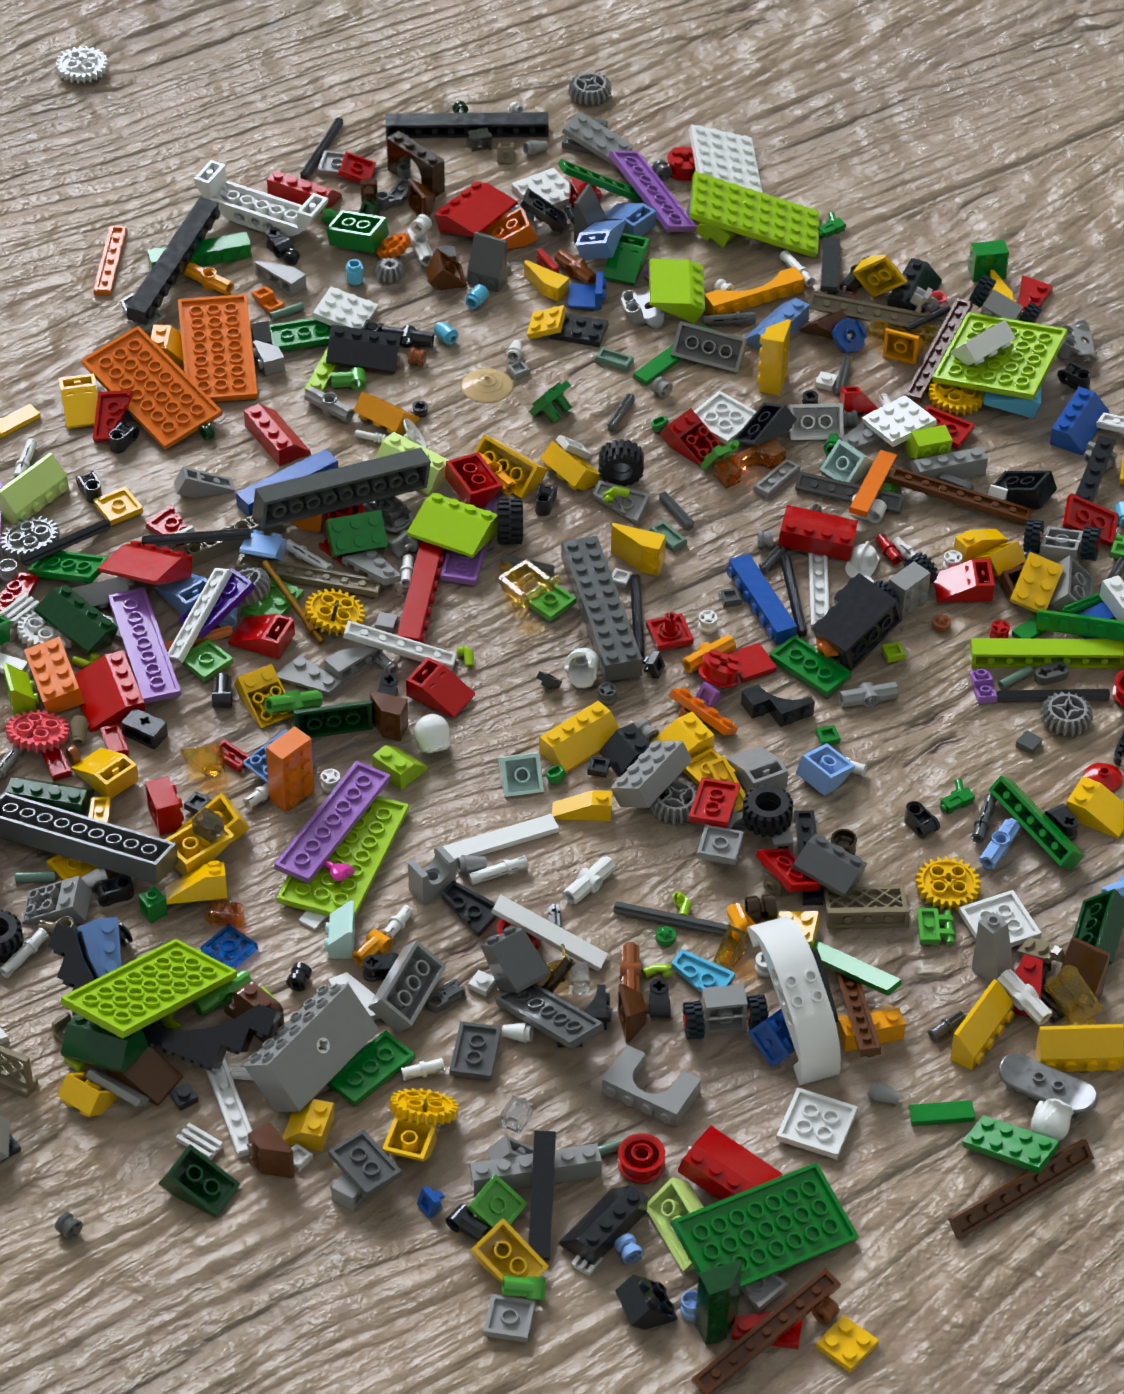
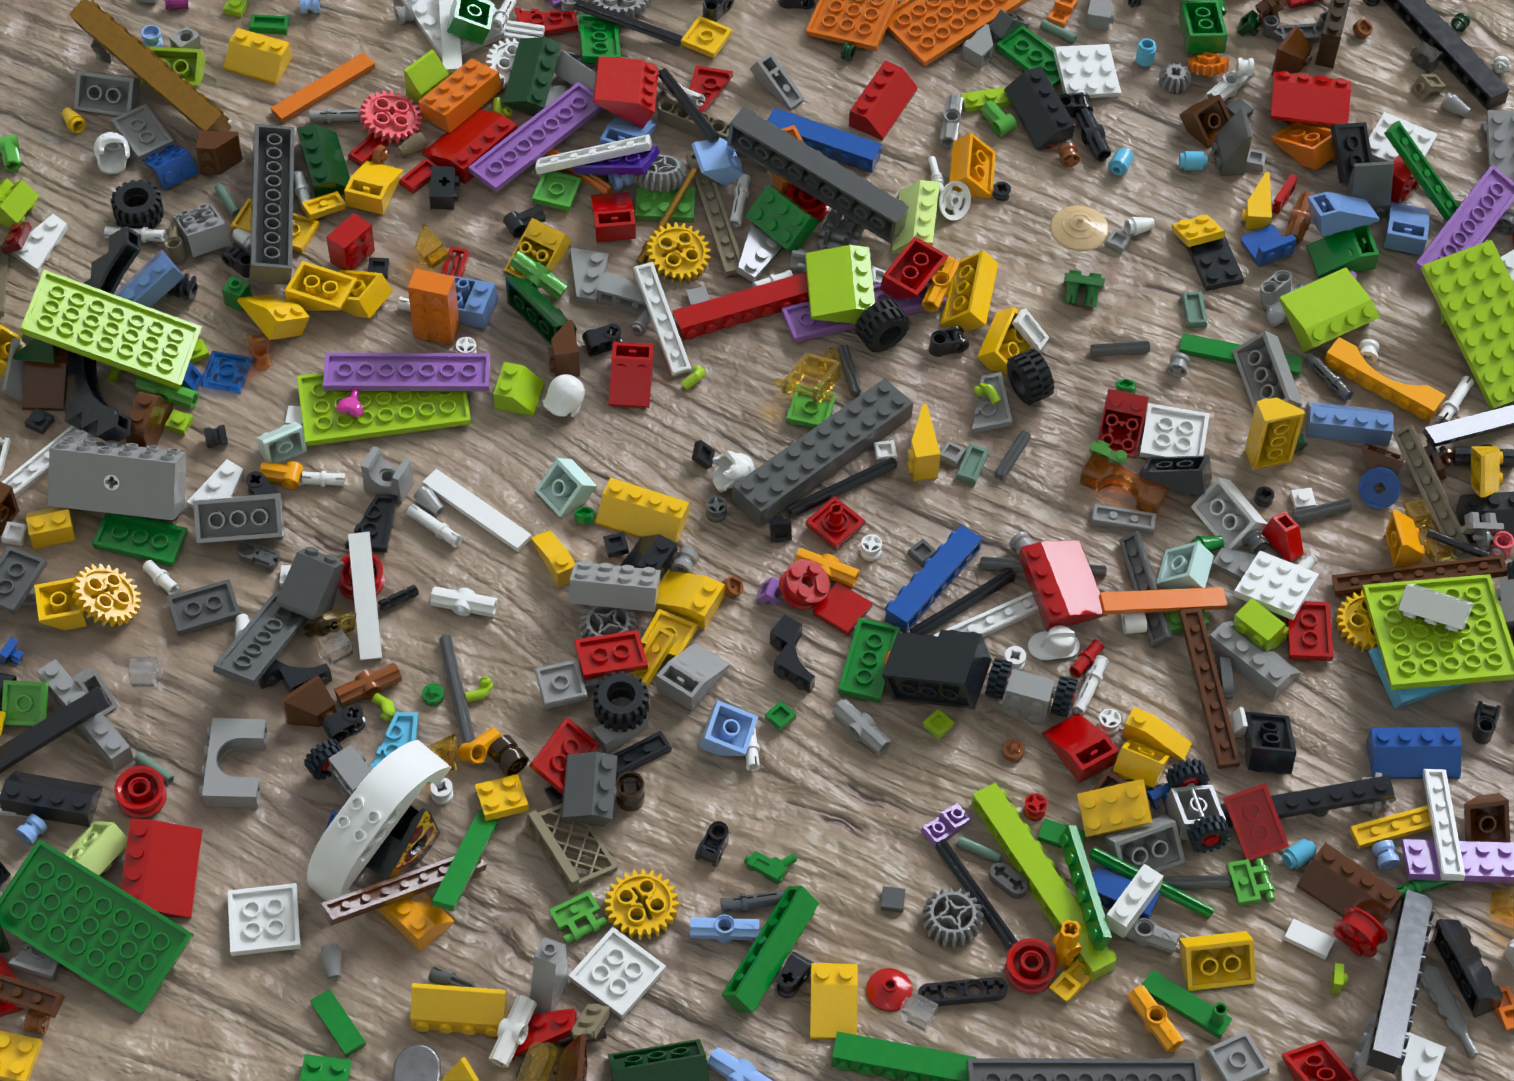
camera: 60 degrees right, 10 degrees up
(208, 825) = (331, 281): clear smoke brick -> none
(704, 712) = (743, 597): orange plate -> none

